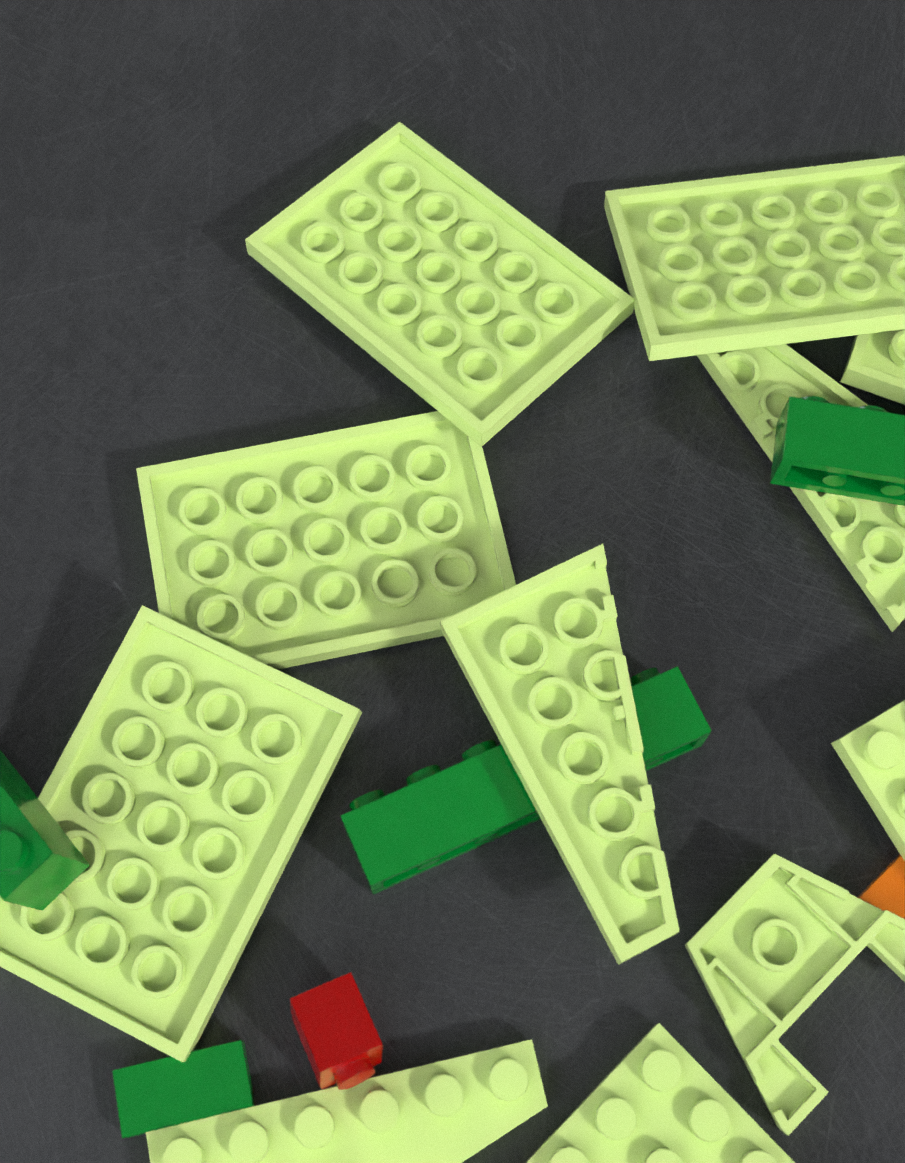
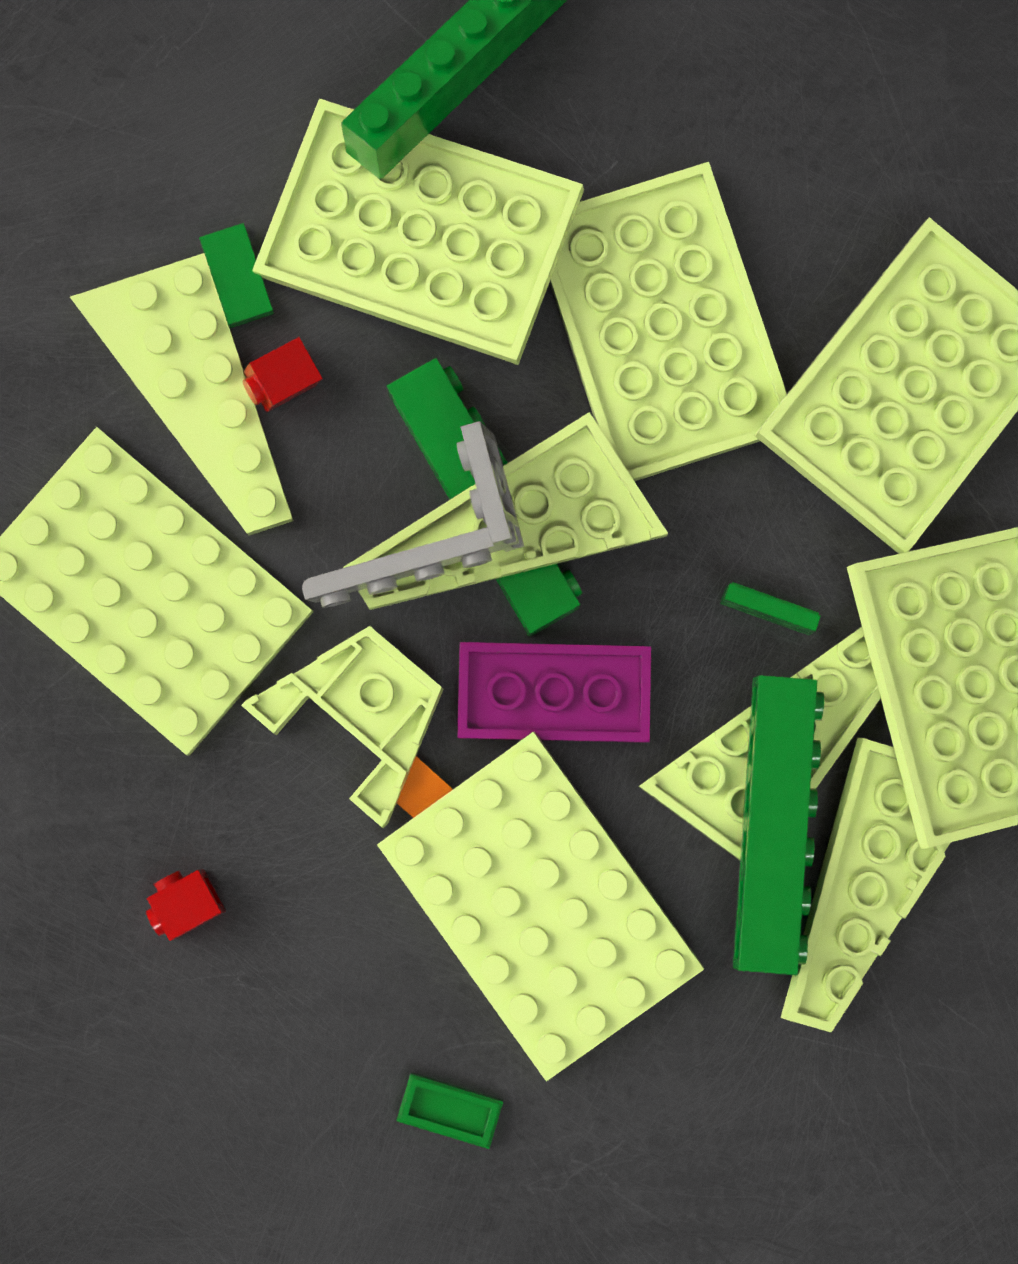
camera: 80 degrees right, 15 degrees up
(632, 834) = (489, 501): none -> light grey bracket
(685, 457) = (770, 608): none -> green tile
(778, 720) = (555, 691): none -> magenta plate

